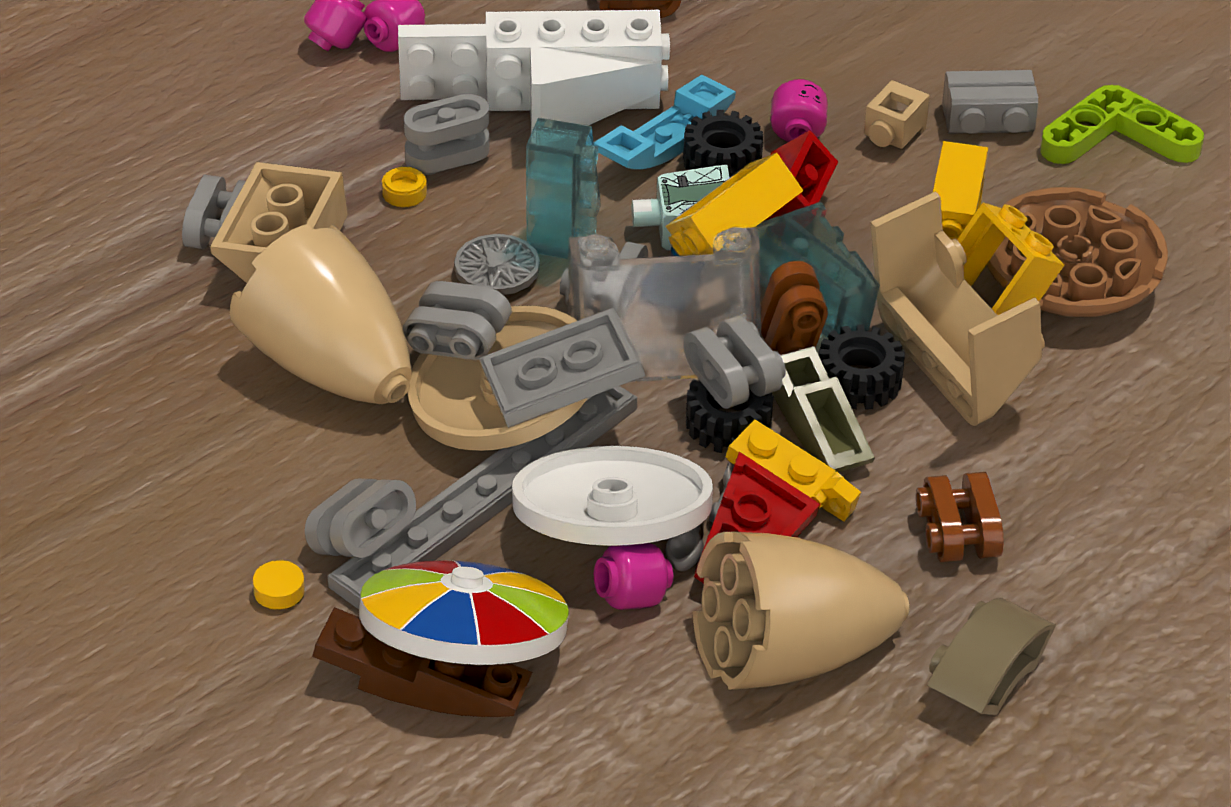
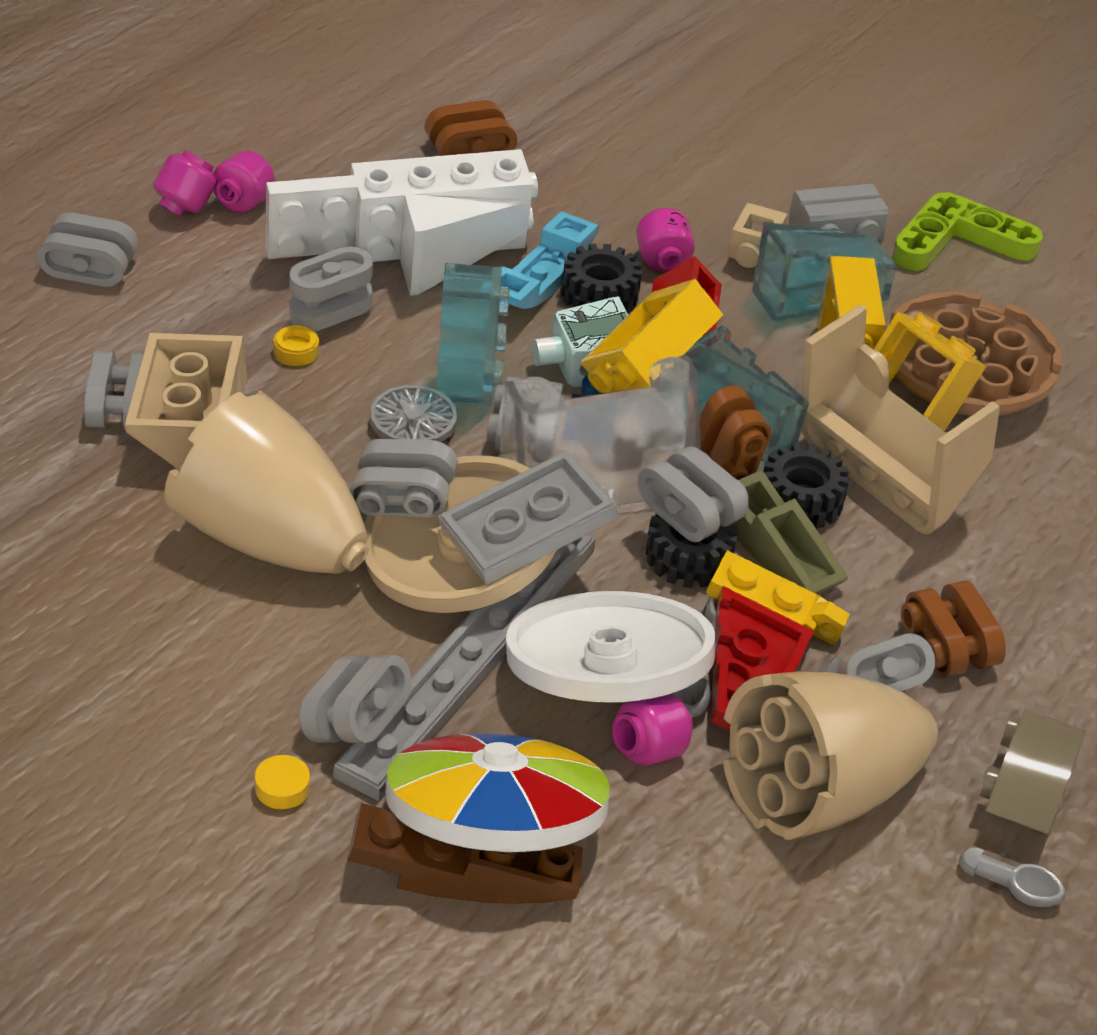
camera: 15 degrees left, 0 degrees up
(227, 77) = (87, 249): none -> light grey brick
(877, 540) = (894, 662): none -> light grey brick
(914, 146) = (796, 262): none -> clear light blue wedge
(952, 755) = (1026, 882): none -> light grey piece

